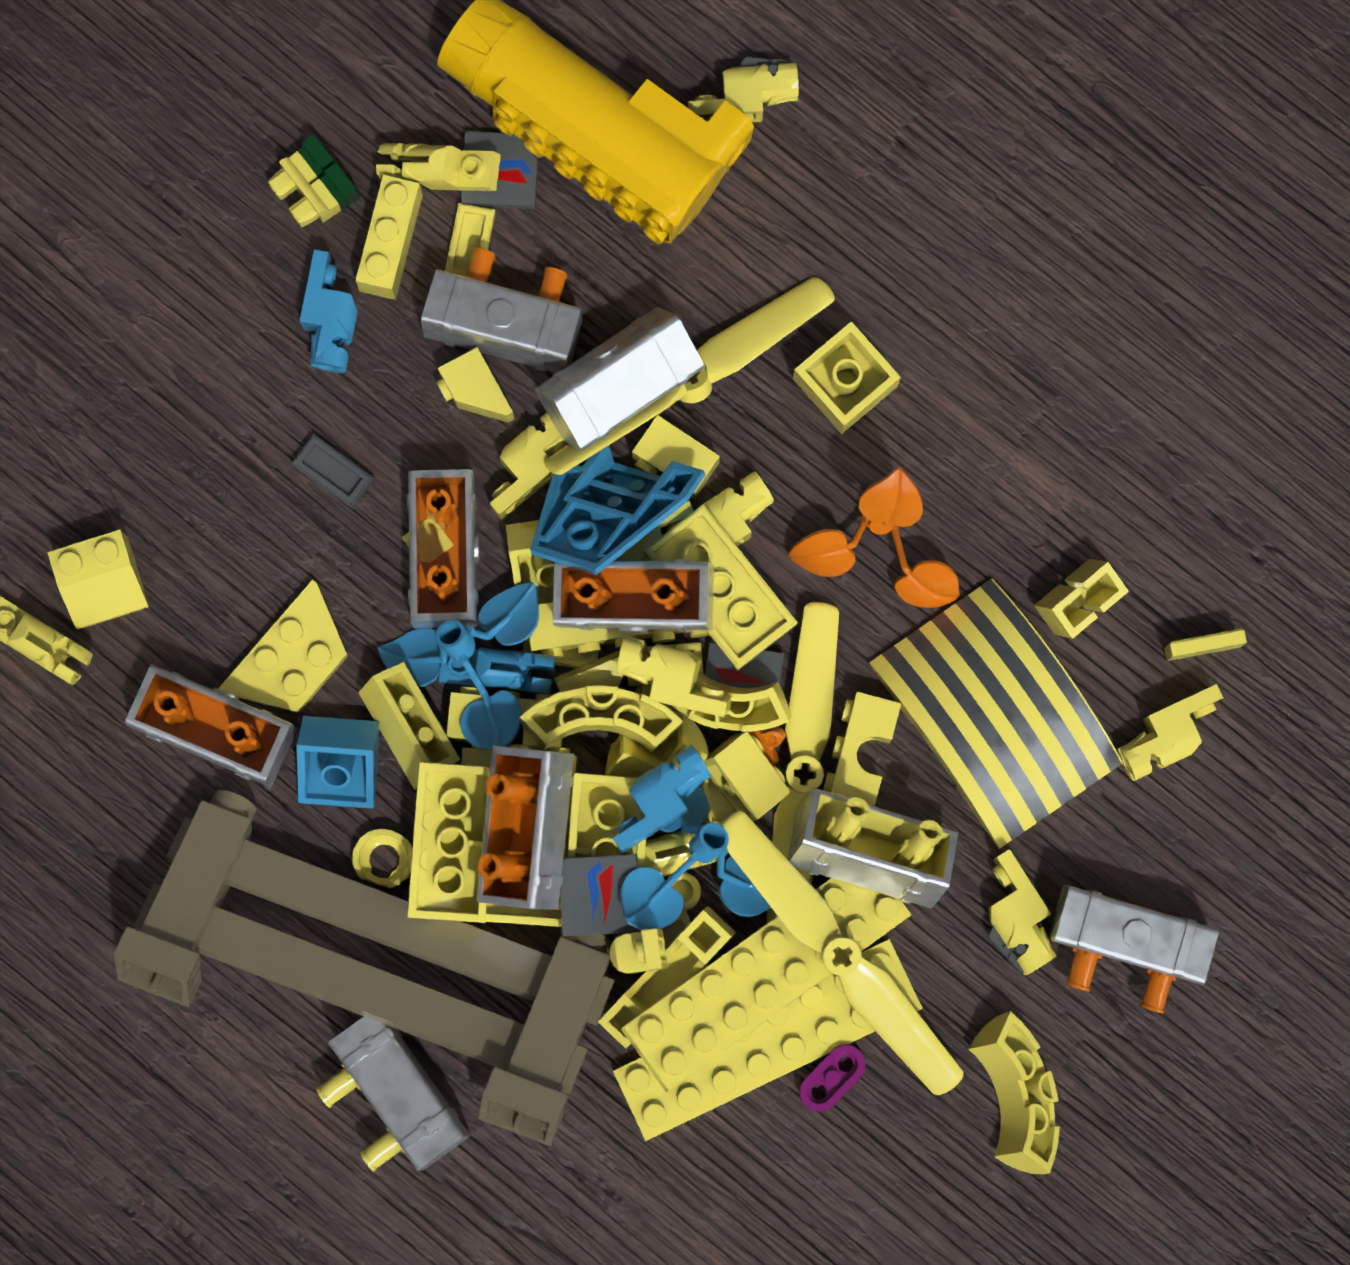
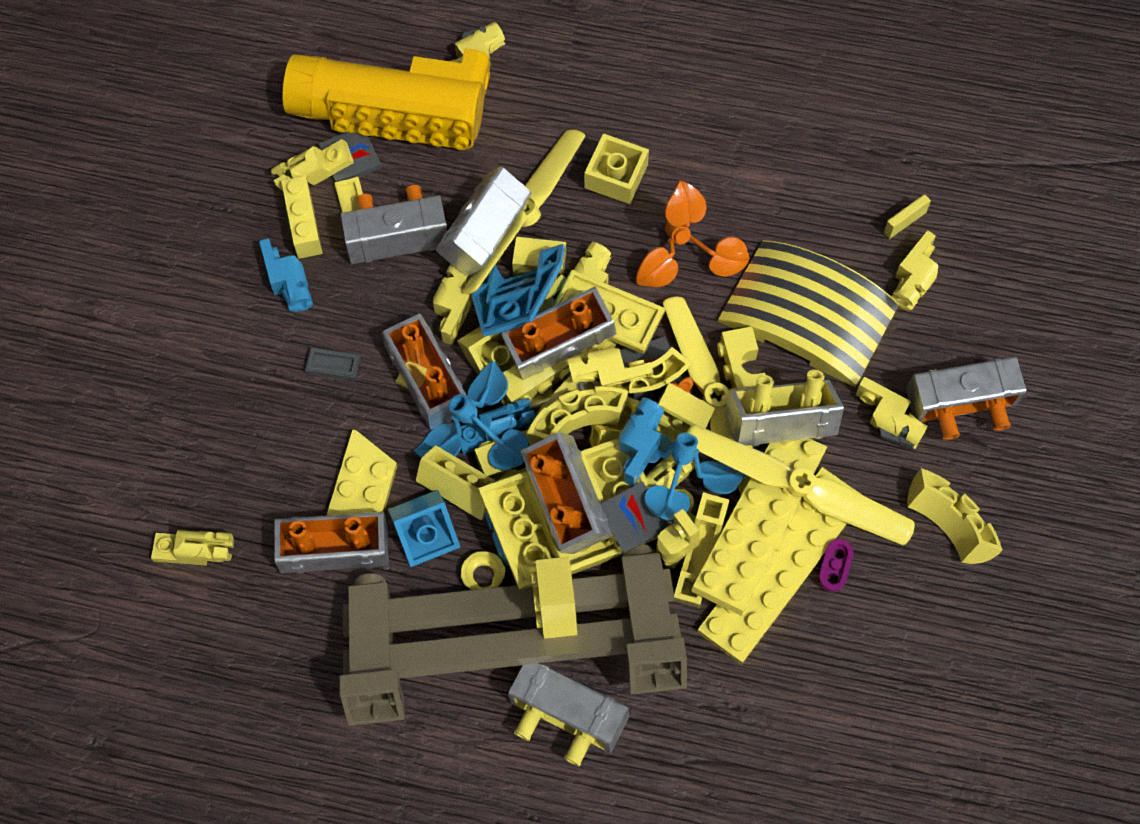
camera: 25 degrees left, 15 degrees down
(98, 579) = (215, 491): light yellow slope -> none
(317, 179) = (243, 207): light yellow hips -> none
(442, 957) = (554, 597): none -> light yellow brick
(473, 387) = (397, 275): light yellow slope -> none
(1091, 585) = (821, 222): light yellow piece -> none

